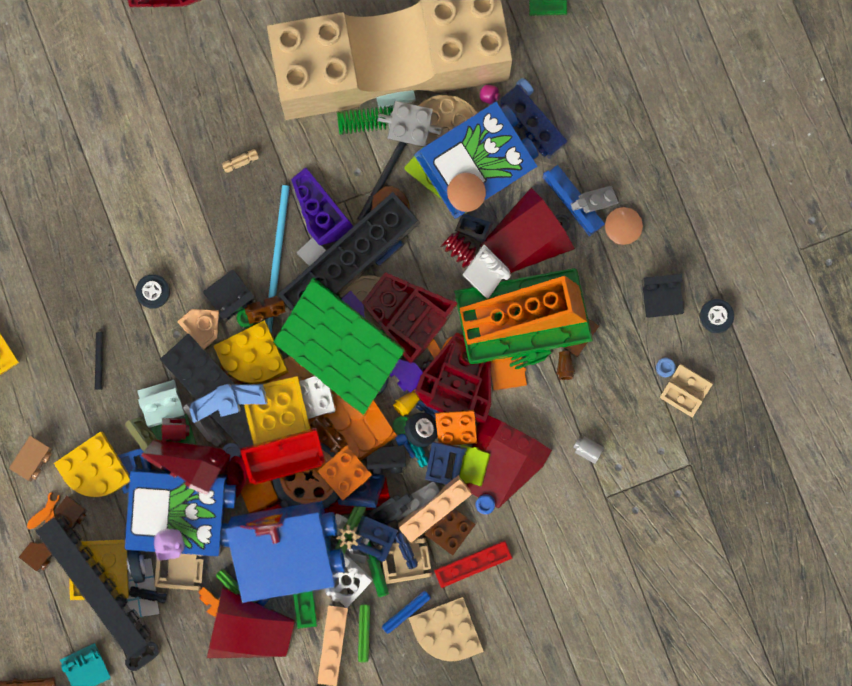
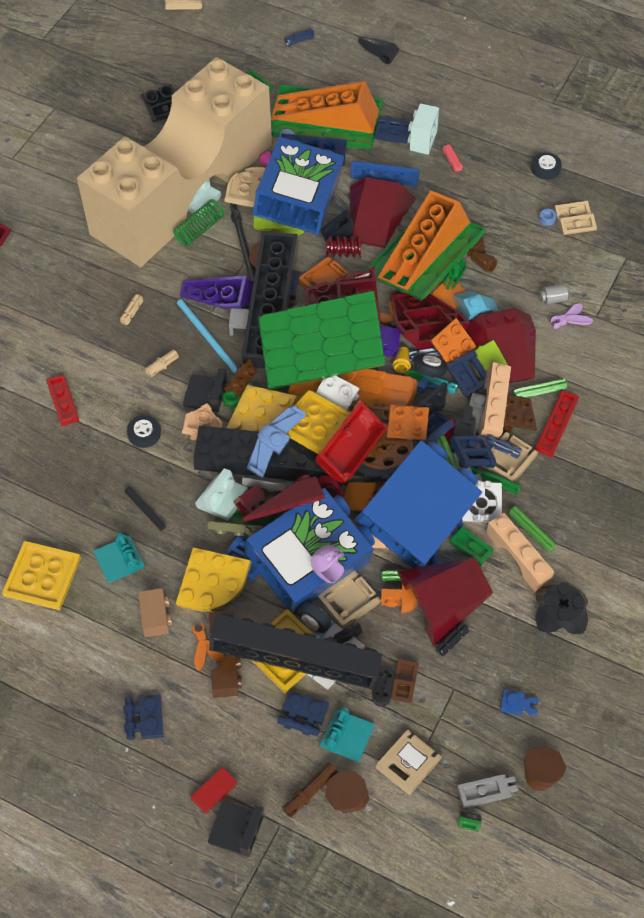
camera: 40 degrees left, 25 degrees down
(45, 388) = (119, 558): none -> teal hinge
(75, 623) = (306, 708): none -> dark blue plate
(117, 204) = (62, 400): none -> red tile
(160, 666) = (404, 681): none -> reddish brown slope
(219, 237) = (161, 363): none -> tan axle
(222, 665) = (452, 639): none -> black axle
(267, 525) = (397, 481): shield -> none
(348, 531) = (456, 455): tan gear -> none
(406, 612) = (546, 490): blue axle -> none
(409, 123) = (231, 197): light grey plate -> none
(424, 267) = (322, 273): none -> orange container
(447, 632) = (588, 479): tan plate -> none
(466, 192) = (313, 193): nougat dish -> none
(485, 504) = (523, 378): tile -> none
(486, 272) = (373, 238): white hinge -> none
(490, 523) = (540, 388): none -> axle
(516, 403) = (474, 304): none -> medium azure slope
(581, 90) = (328, 112): none -> orange piece
(583, 480) = (572, 317): none -> lavender piece
(595, 200) = (400, 157): light grey hinge -> none
(621, 163) = (393, 130): none -> dark blue plate
(623, 226) = (432, 164): nougat dish -> none
(644, 187) = (423, 128): none -> light aqua brick
(646, 235) = (452, 158): none -> coral axle
(662, 295) = (497, 178): black bracket -> none
(701, 54) = (383, 49): none -> black piece

